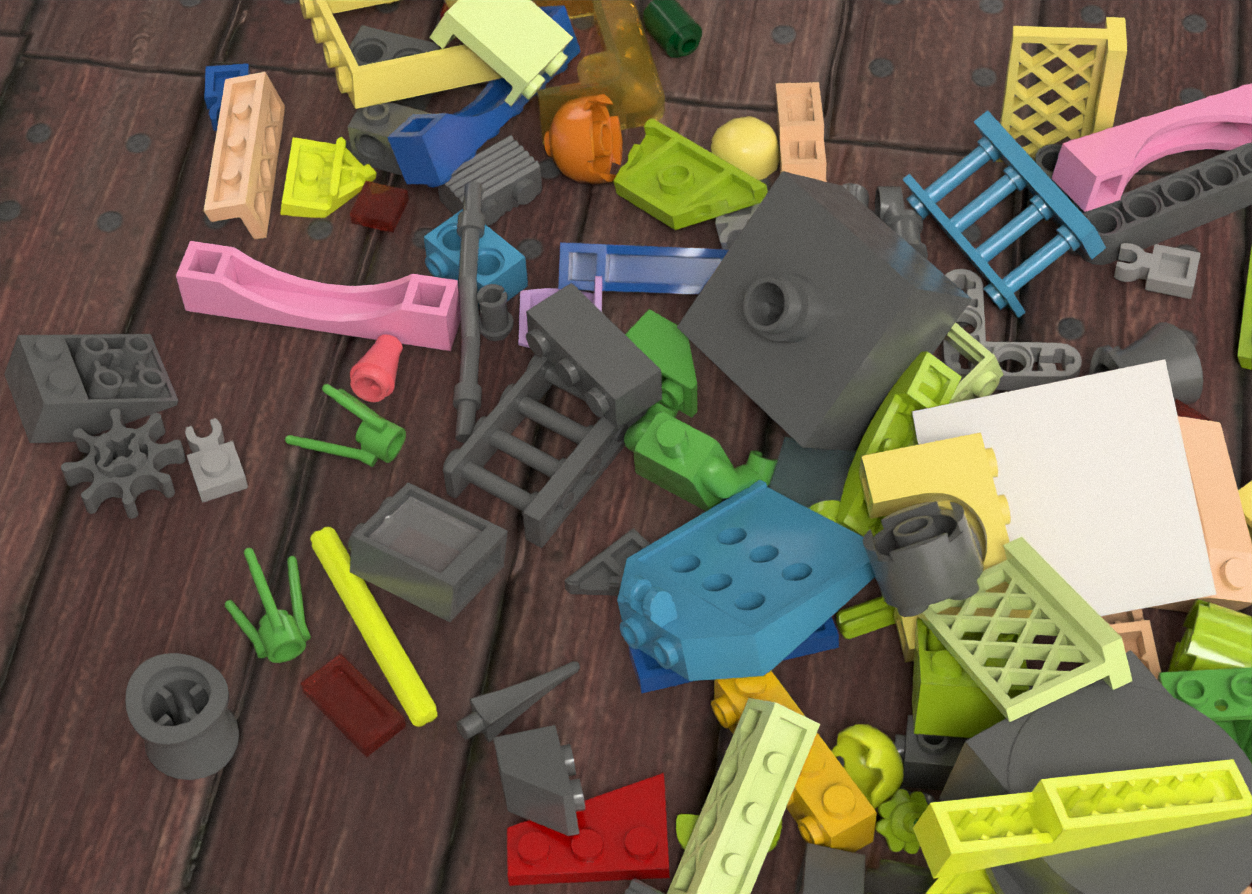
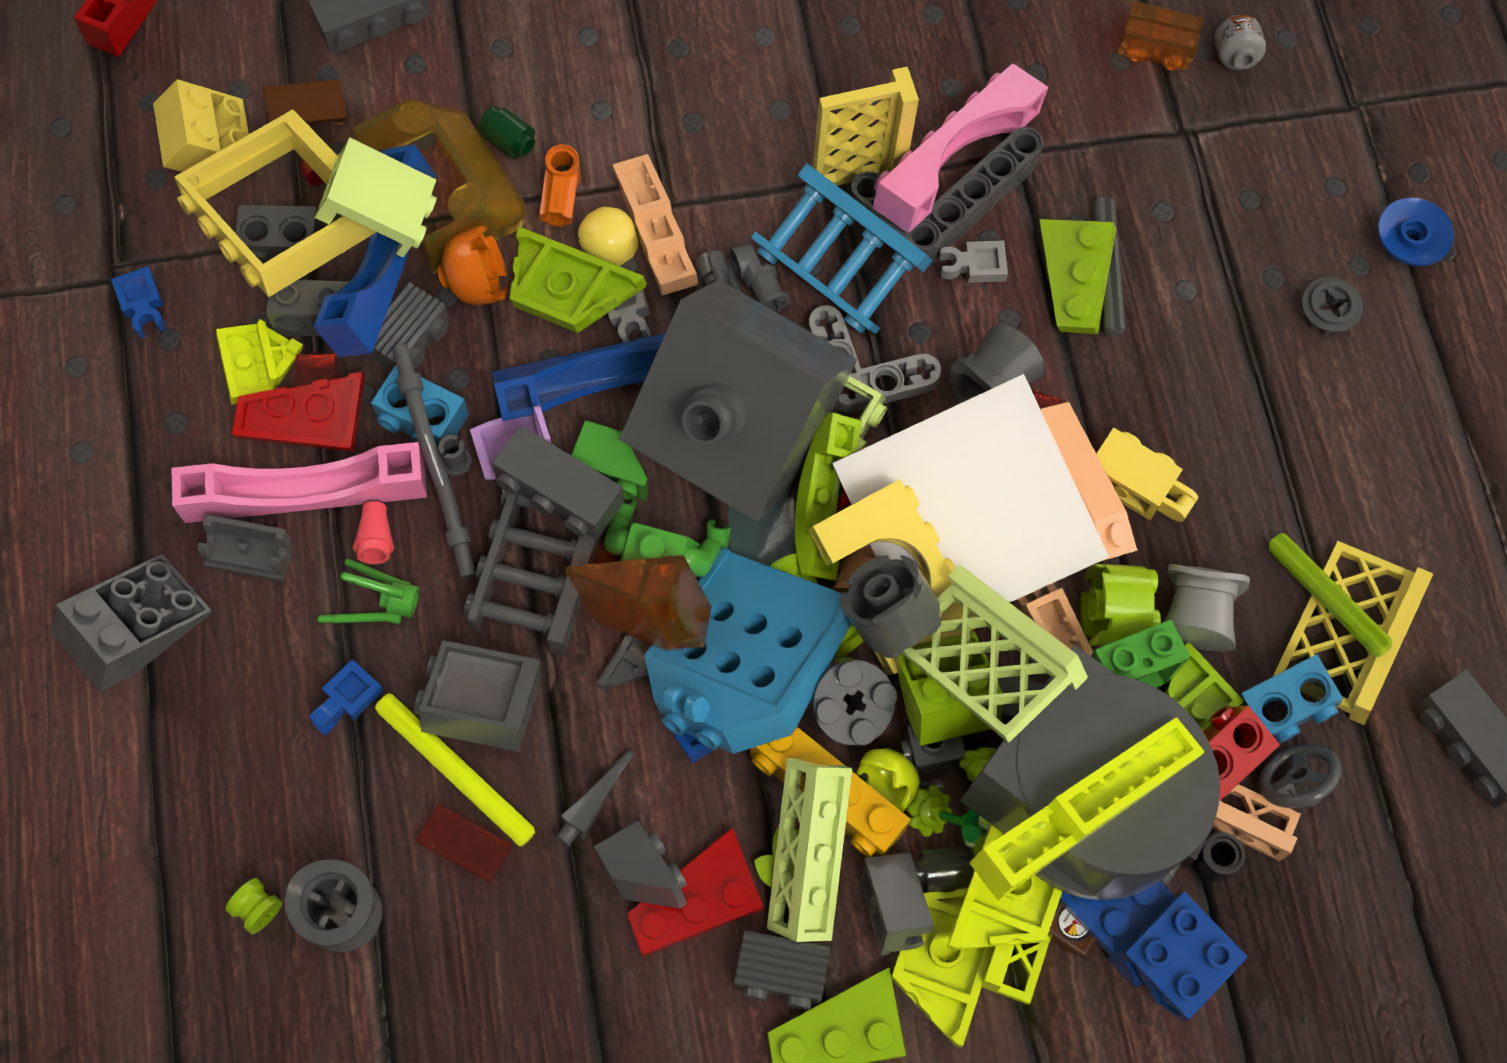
camera: 25 degrees left, 15 degrees up
(98, 695) = (253, 906): none -> lime wheel
(123, 463) = (183, 673): dark grey gear -> none
(214, 464) = (268, 663): light grey plate -> none
(238, 346) = (246, 548): none -> dark grey hinge
(246, 153) = (181, 358): light nougat fence -> none
(280, 634) = (382, 802): bright green plant -> none
(284, 514) = (347, 693): none -> blue plate
(352, 240) = (305, 415): none -> red wing
(647, 493) = (646, 600): none -> clear orange slope
(710, 88) = (559, 187): none -> orange piece
(875, 671) = (870, 704): none -> dark grey brick

